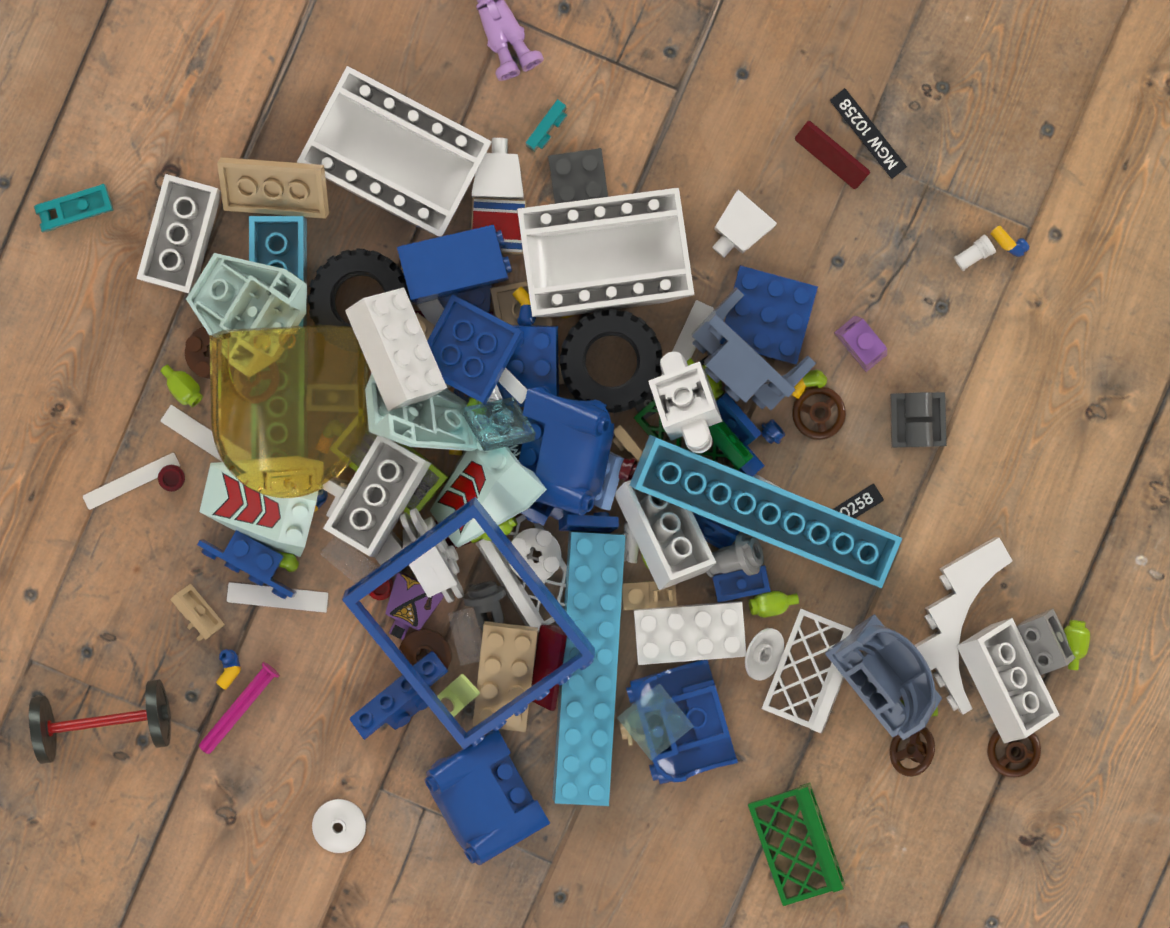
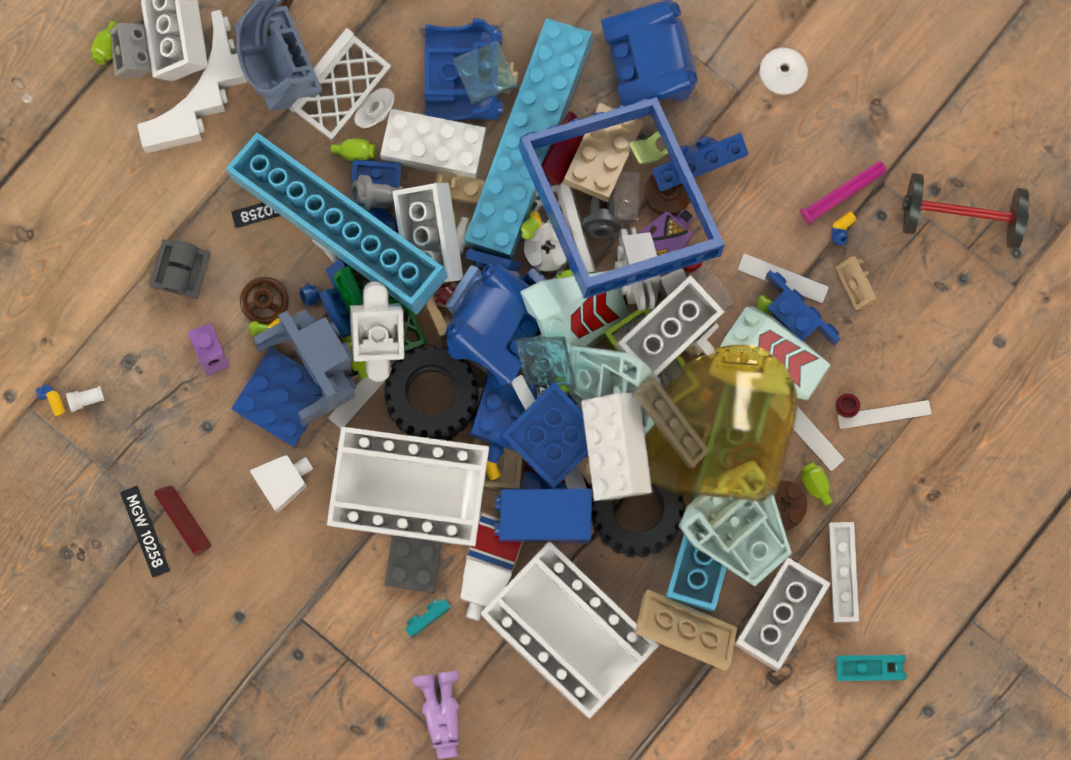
camera: 170 degrees left, 10 degrees down
(128, 299) = (843, 572): none -> white plate
(345, 390) = (670, 422): none -> dark tan plate
(558, 572) = (530, 225): none -> lime arm

